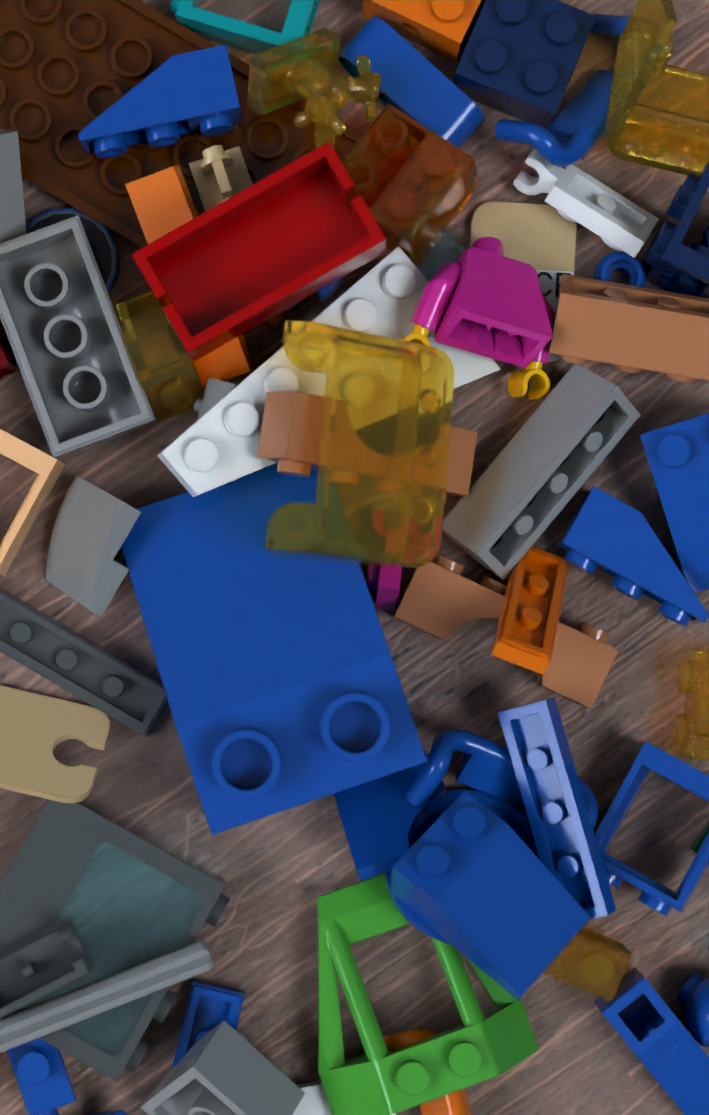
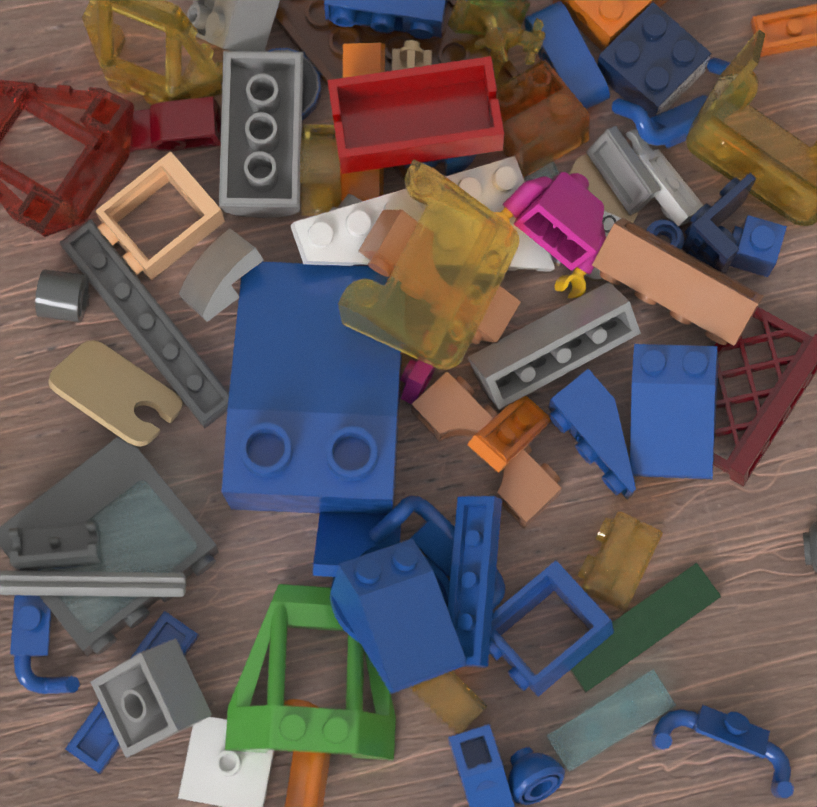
camera: 25 degrees right, 10 degrees down
(539, 211) = (623, 170): none -> light grey tile

